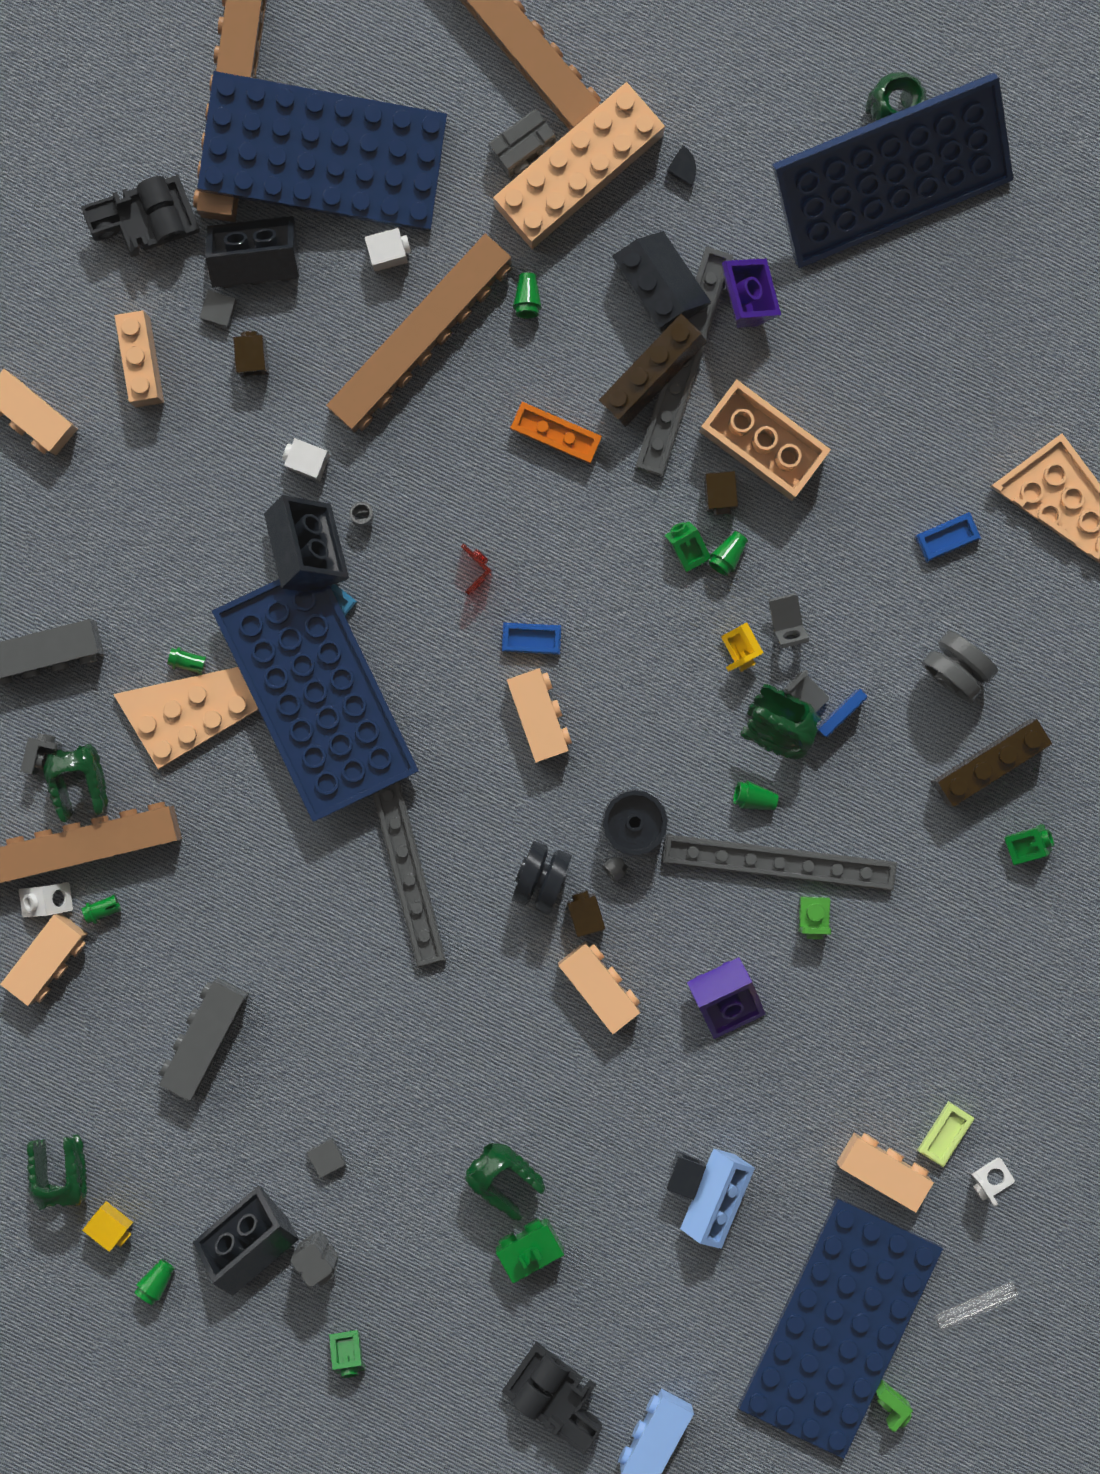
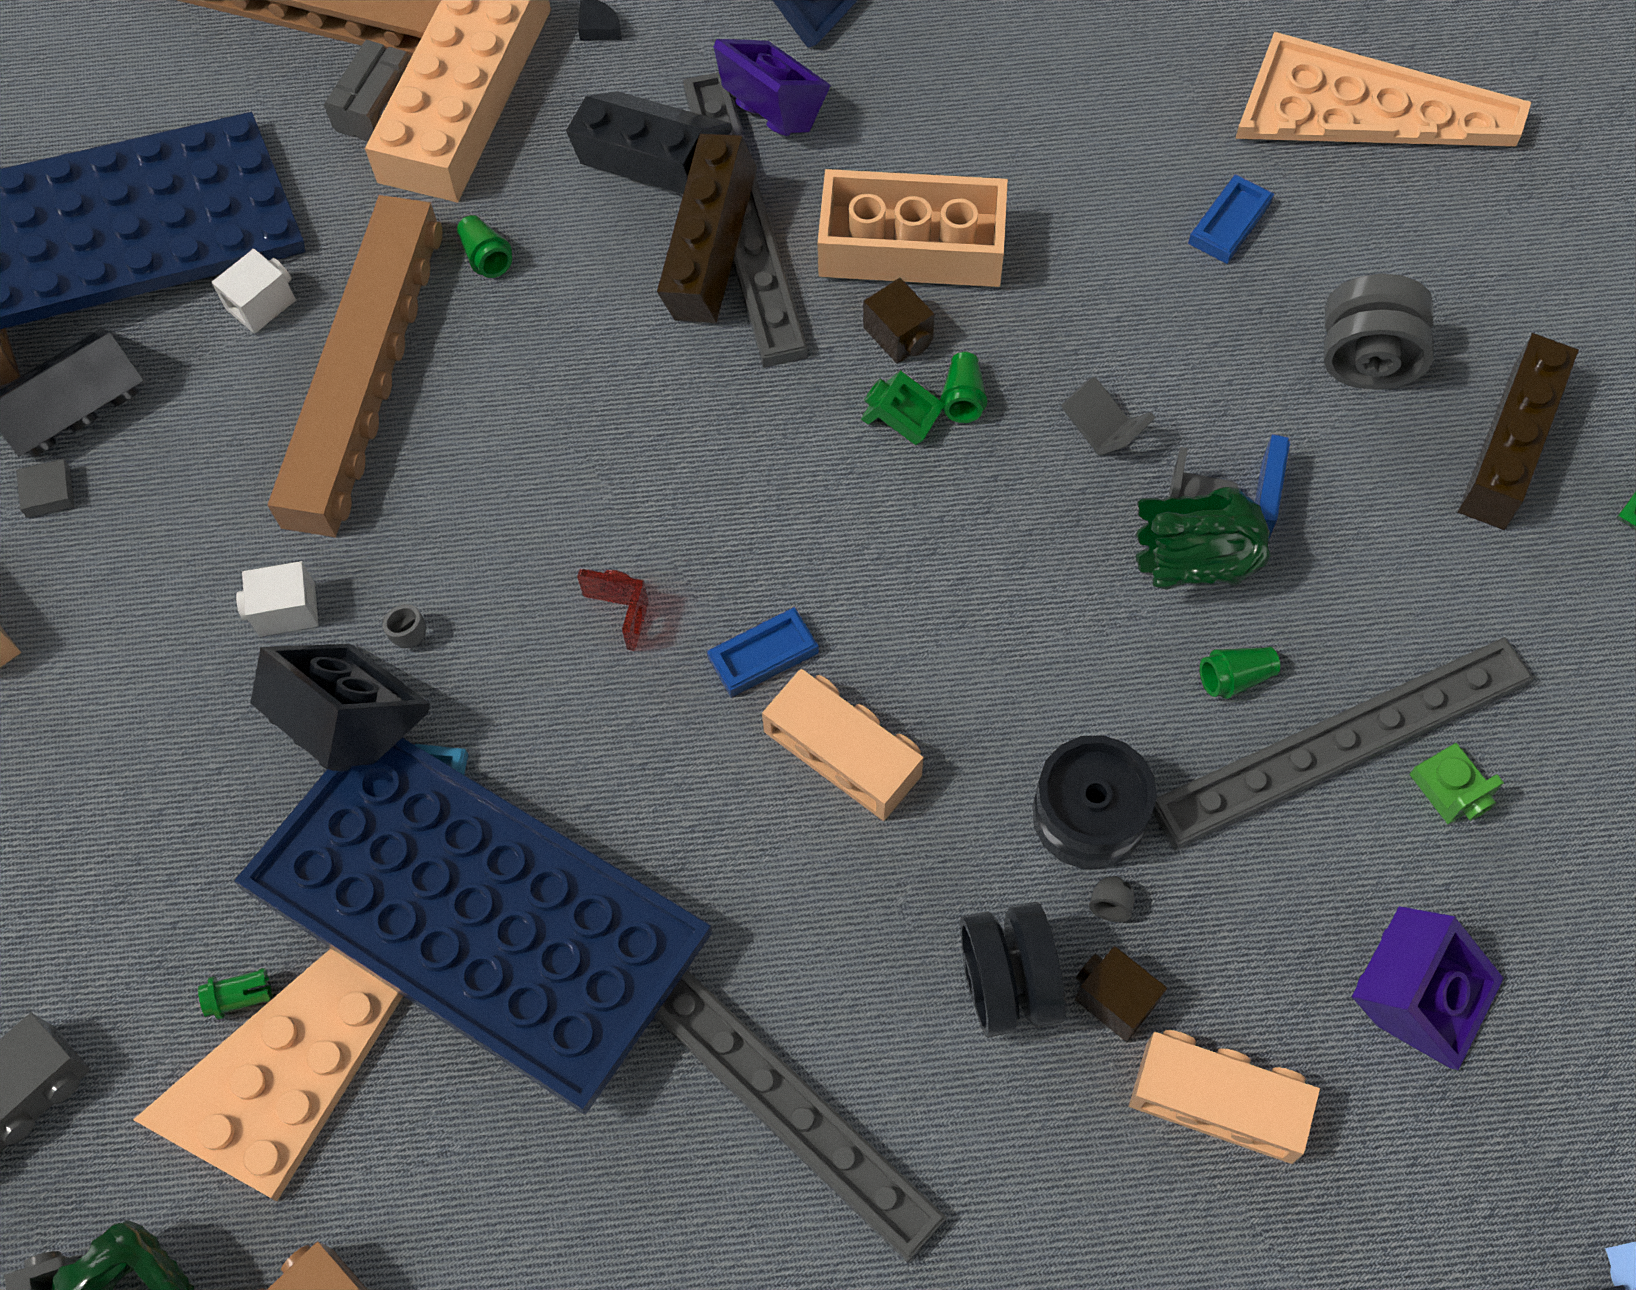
camera: 35 degrees left, 25 degrees down
(251, 354) = (122, 513): dark brown brick -> none
(555, 432) = (624, 376): orange plate -> none
(742, 647) = (1069, 485): yellow bracket -> none

